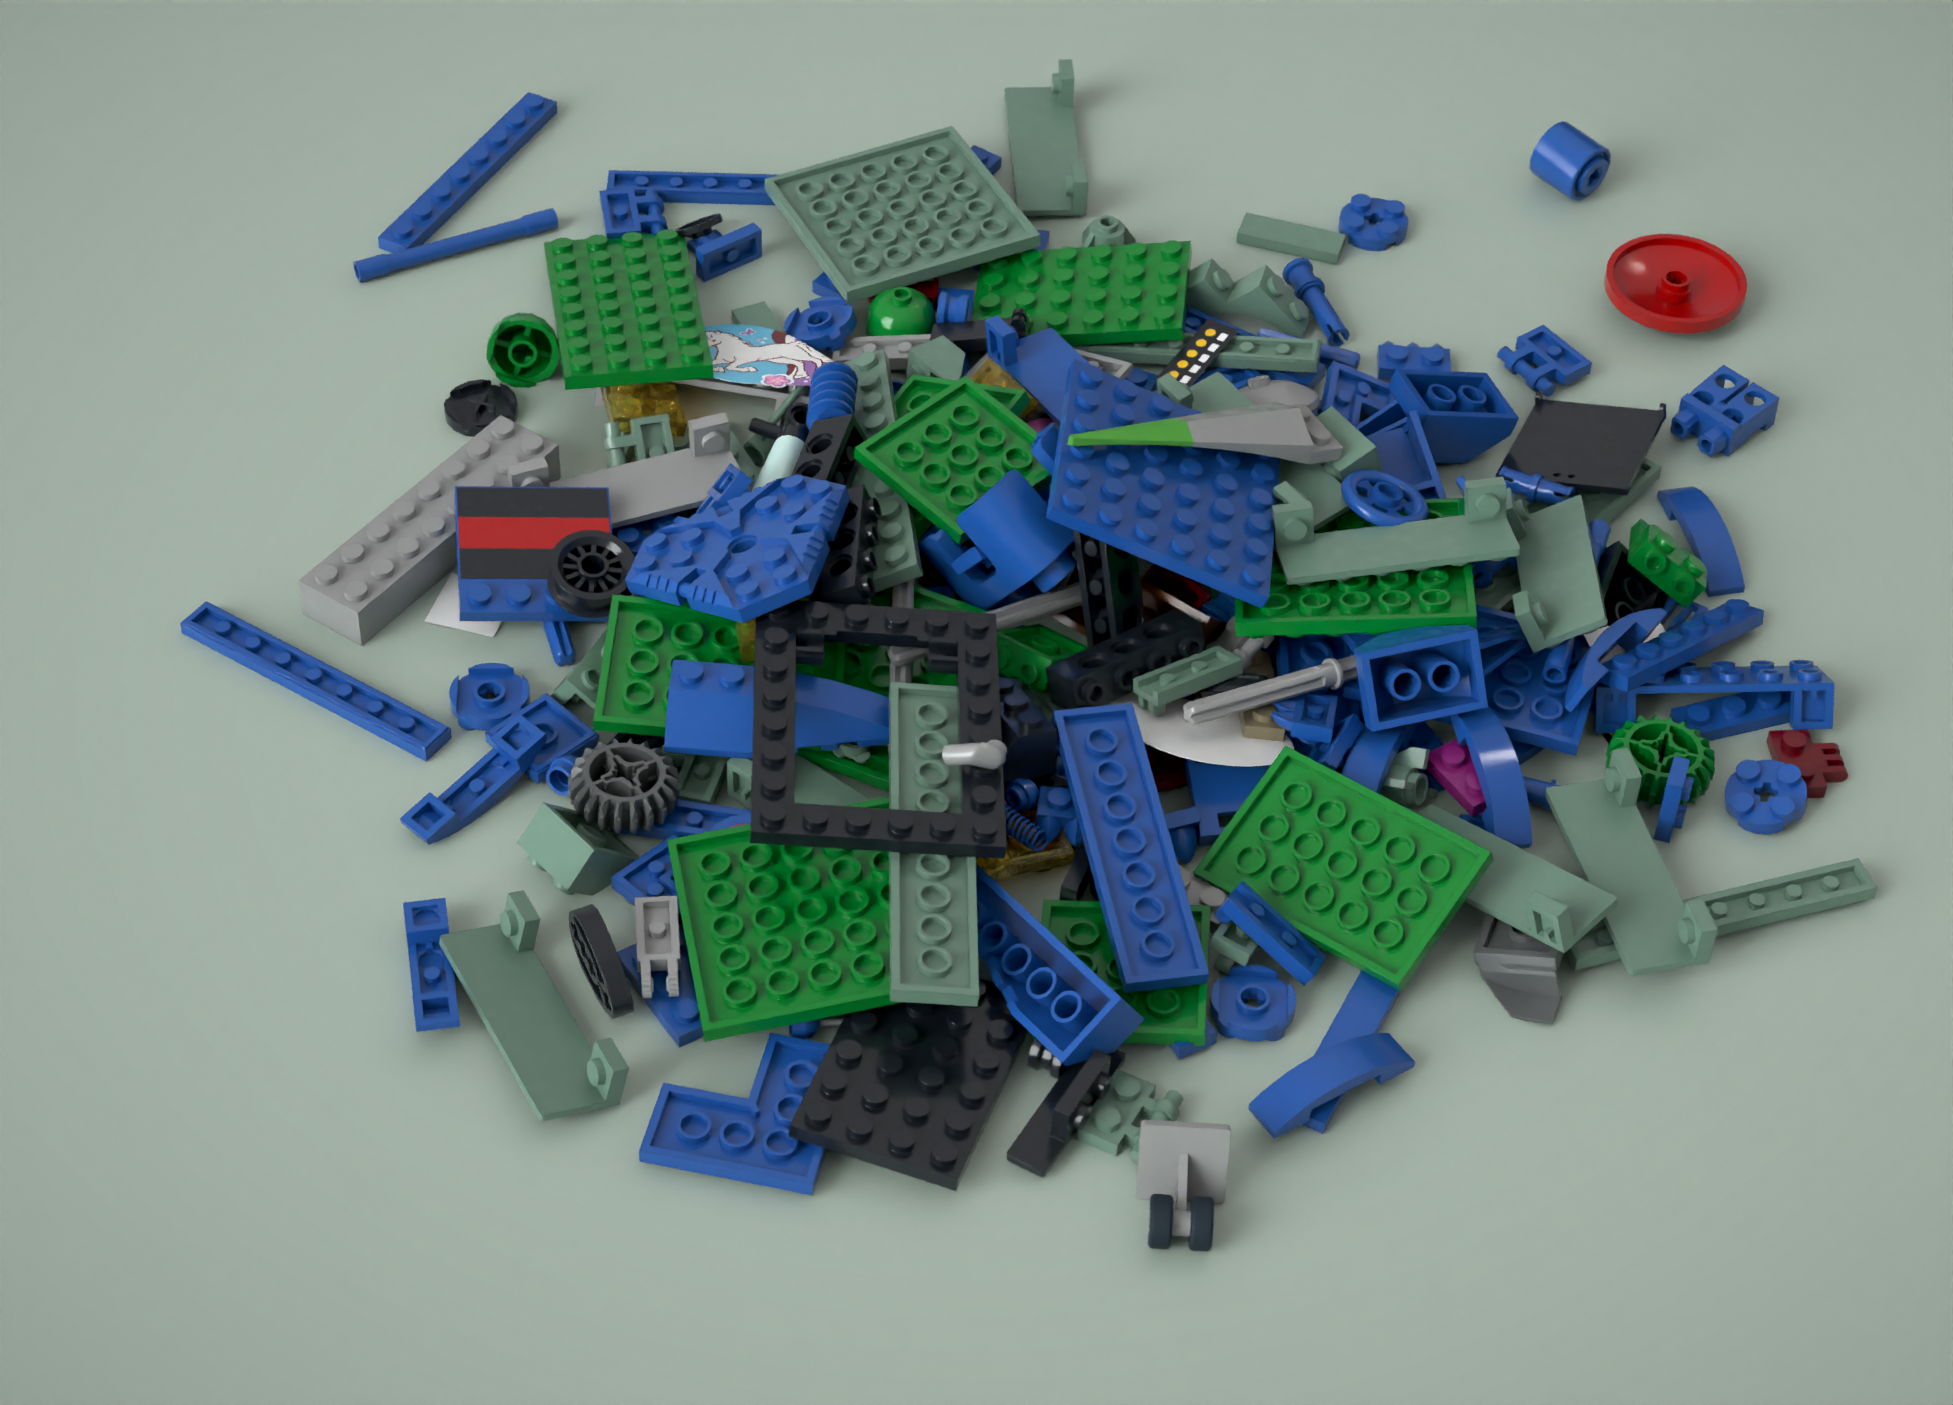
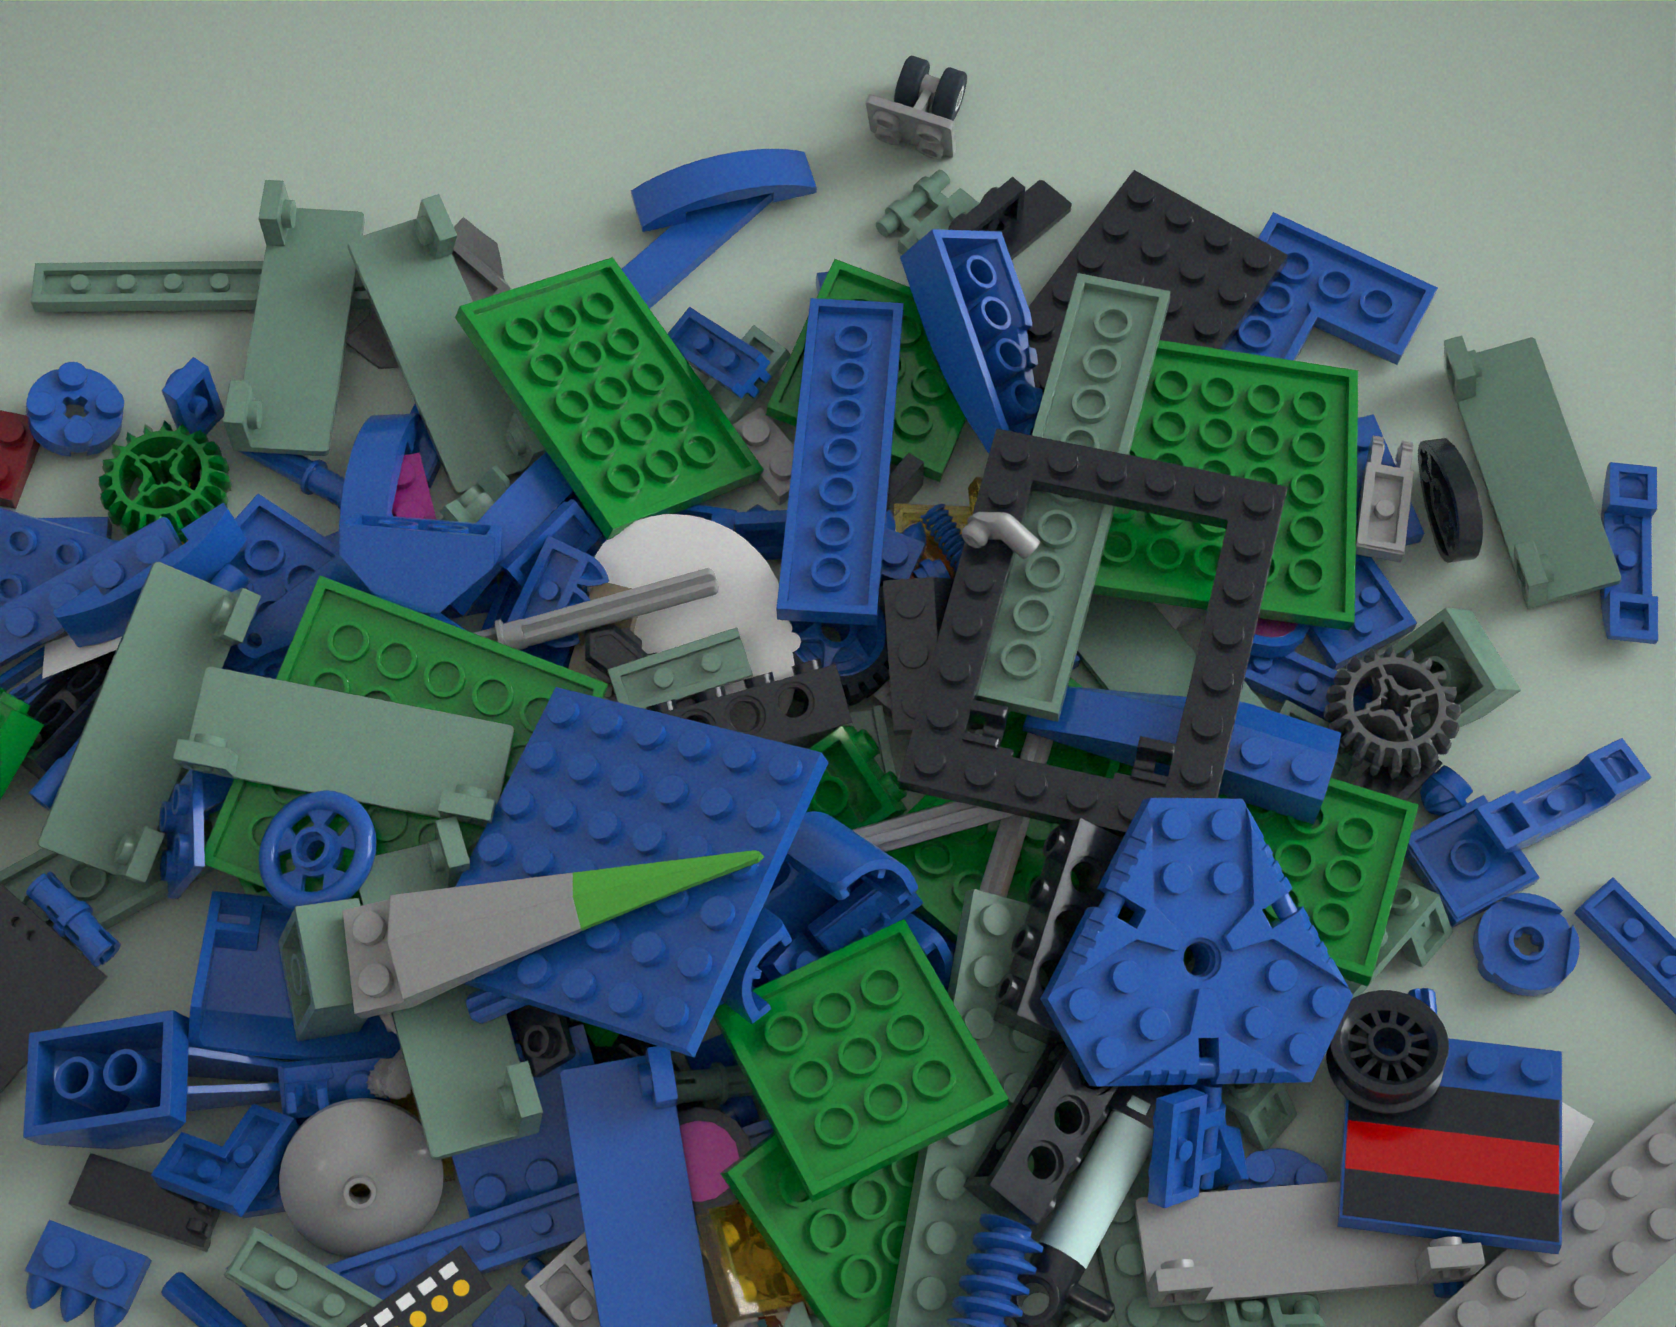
camera: 165 degrees left, 20 degrees up
(1252, 1023) = (769, 283): blue plate -> none

